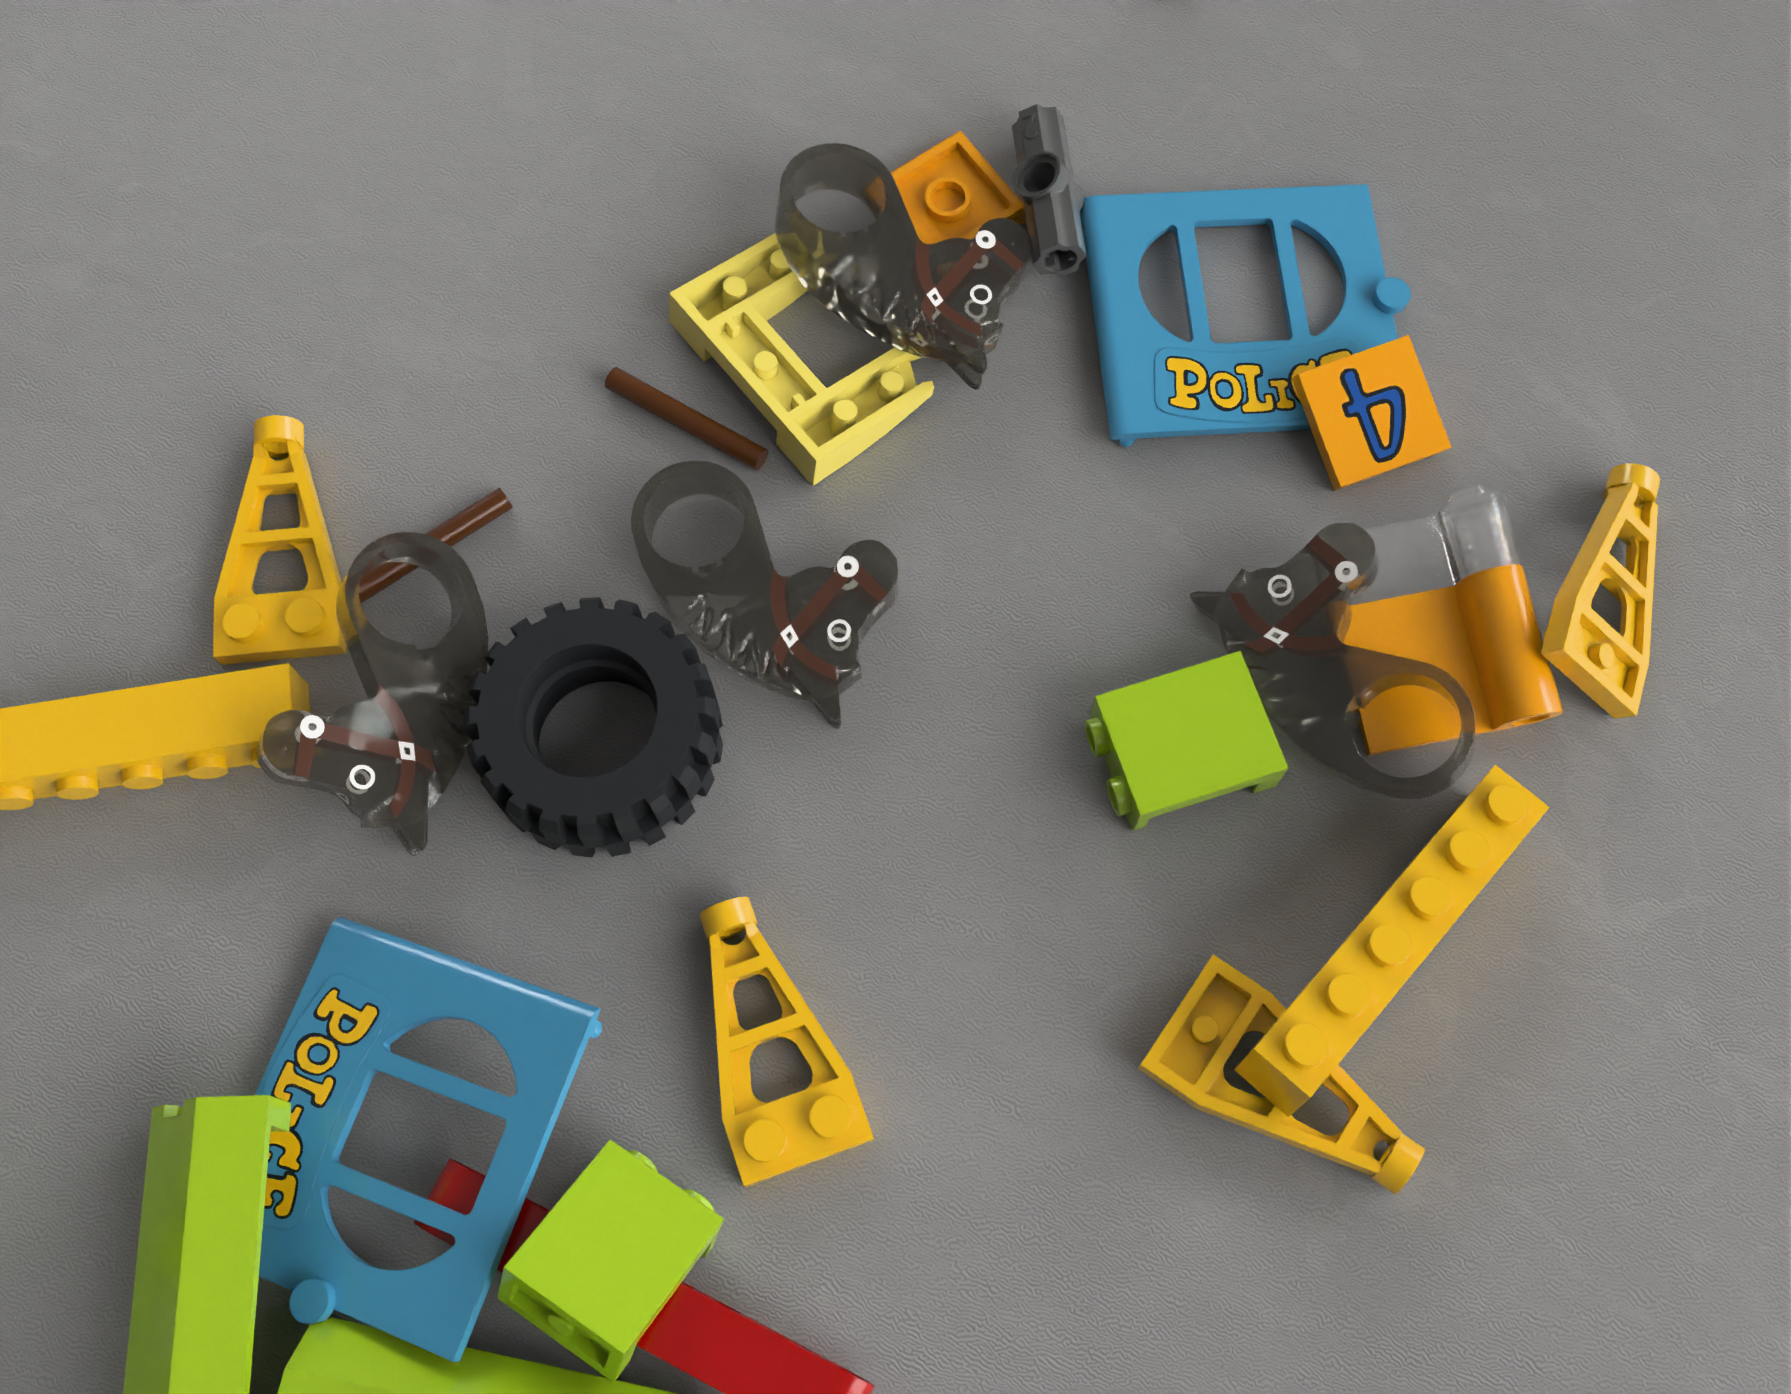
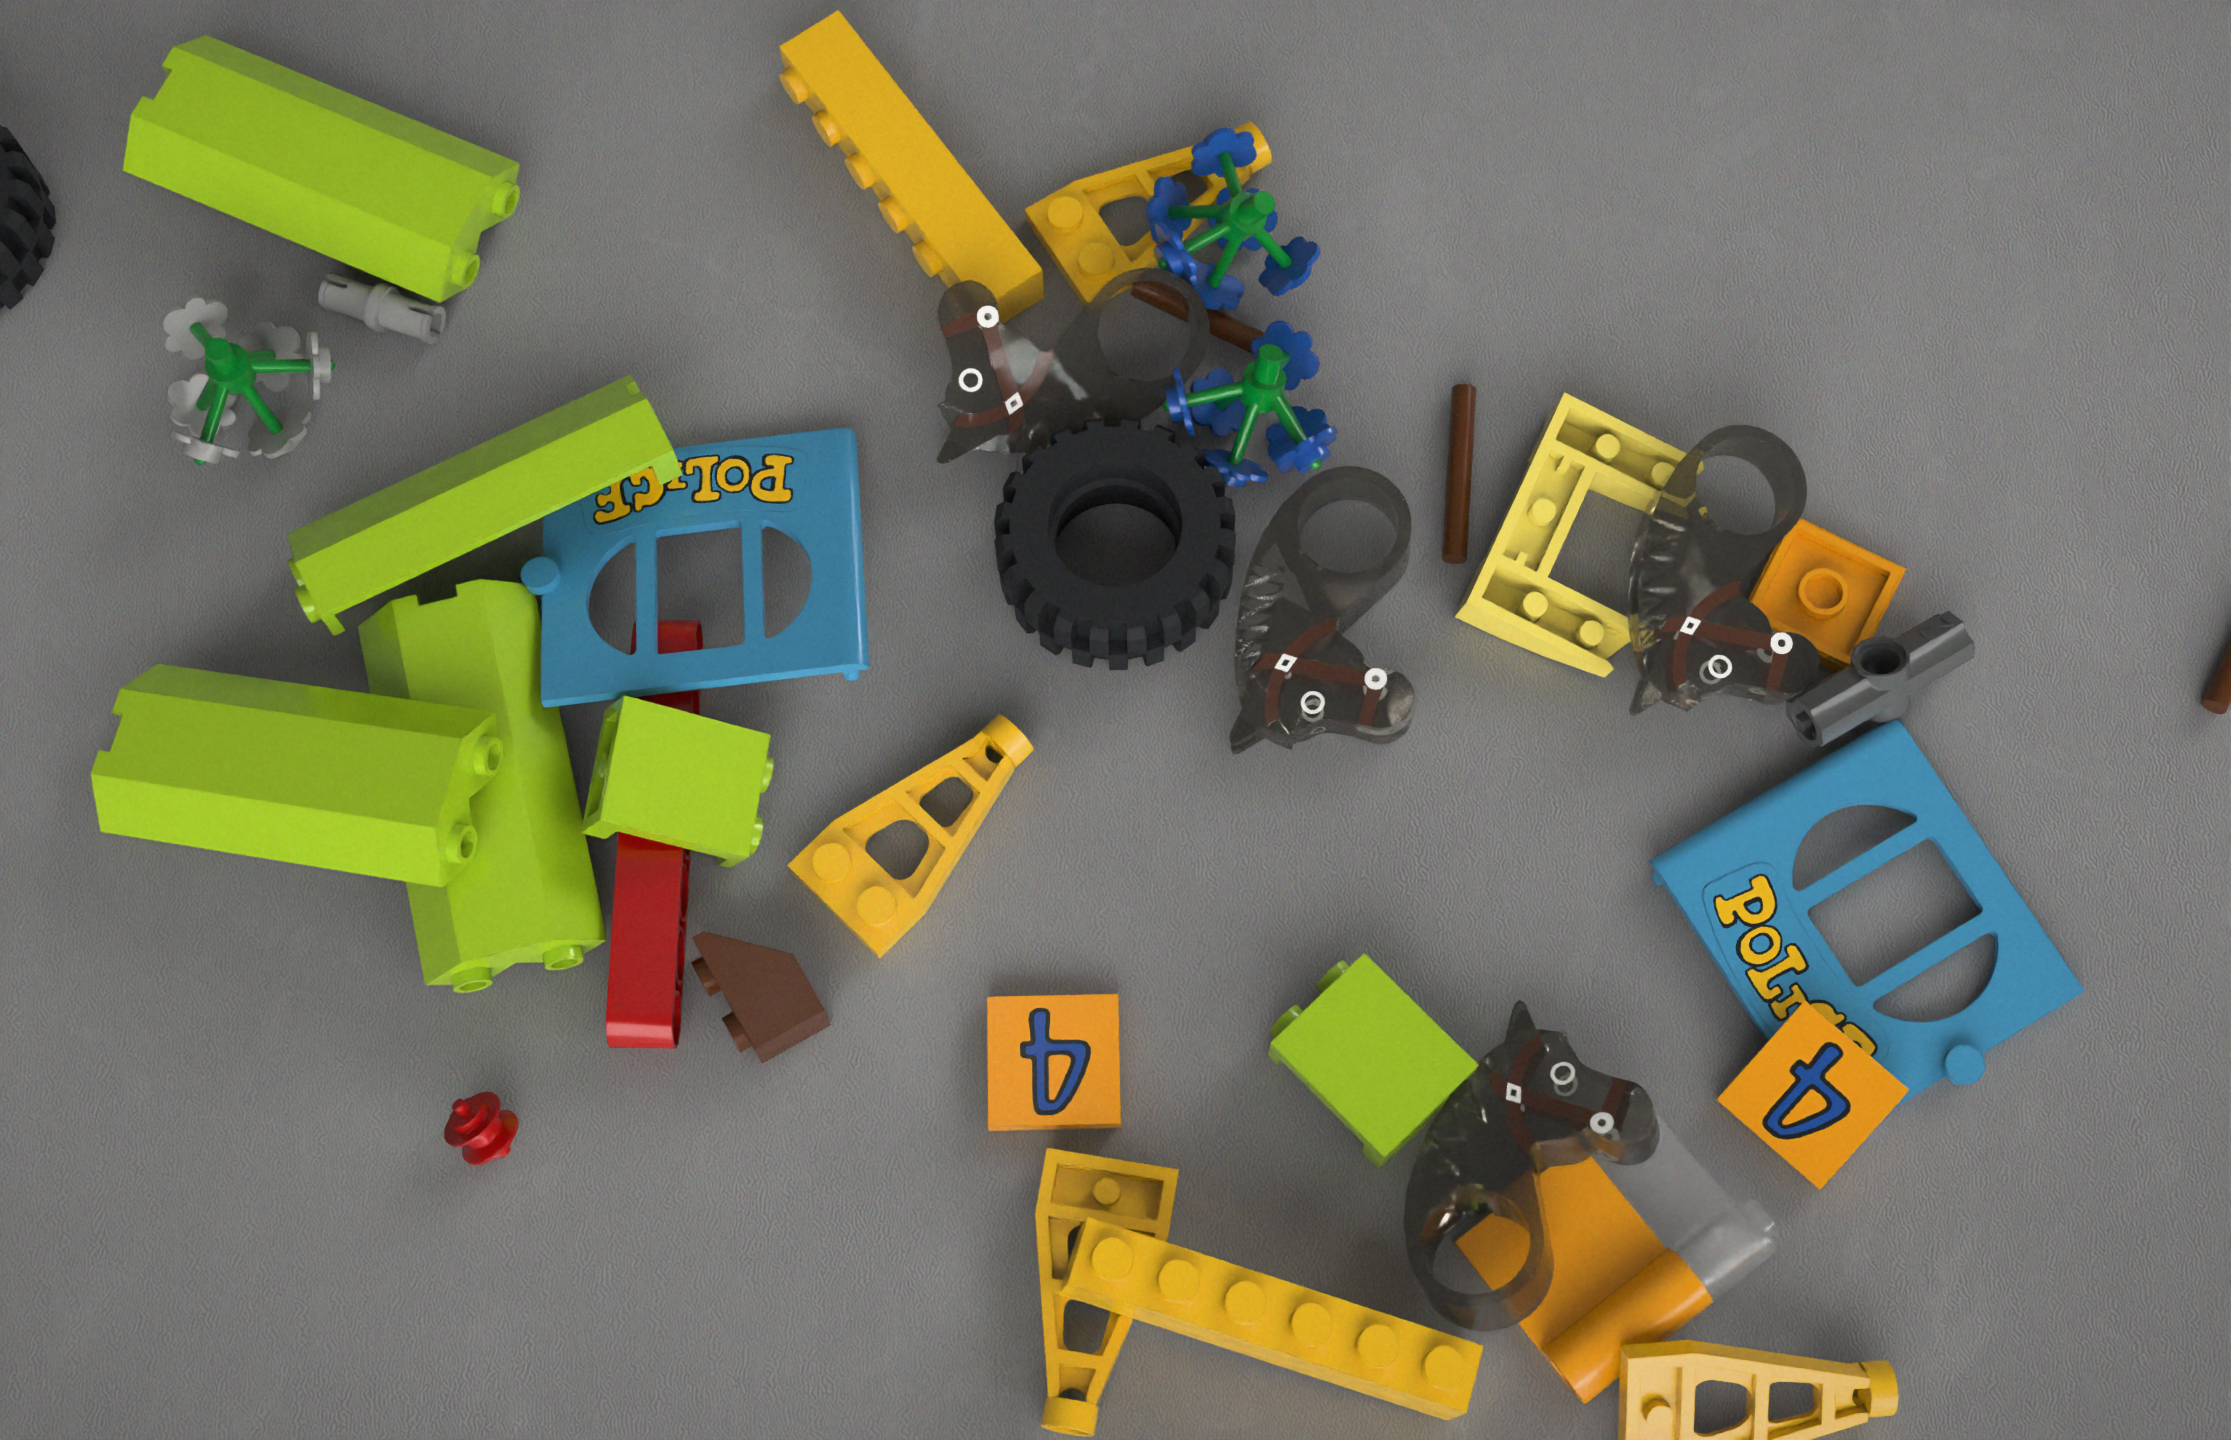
camera: 65 degrees right, 0 degrees up
(347, 478) = (1234, 222): none -> blue plant
(507, 508) = (1234, 406): none -> blue plant
(862, 1266) = (765, 991): none -> reddish brown slope
(1054, 1022) = (1053, 1062): none -> light orange tile

